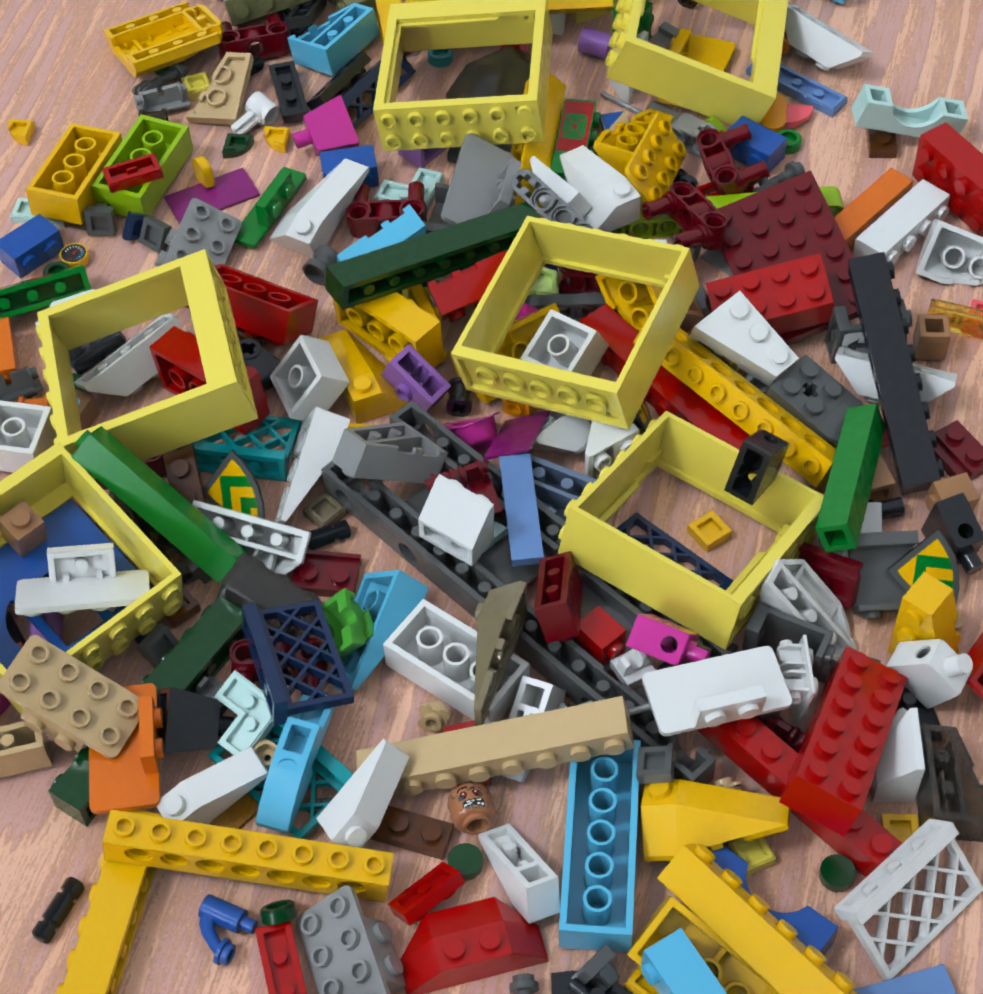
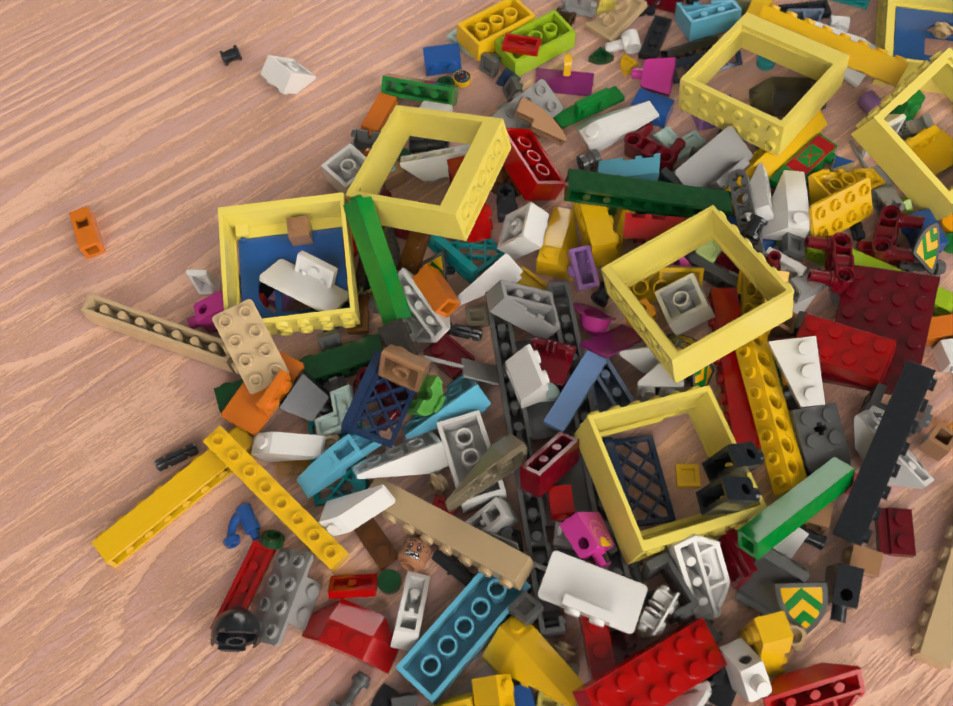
camera: 40 degrees right, 10 degrees up
(228, 248) = (540, 121): none -> medium nougat slope
(258, 501) = (436, 290): none -> orange brick
(298, 602) = (403, 367): none -> medium nougat slope
(371, 565) = (472, 369): none -> light grey piece
(379, 703) = (413, 457): none -> white wedge
(528, 793) = (453, 567): none -> black axle
(584, 215) = (754, 227): none -> black bush
(633, 224) = (792, 246): none -> dark grey tile
(771, 152) = (927, 247): none -> shield
(779, 489) = (737, 494): none -> black torso

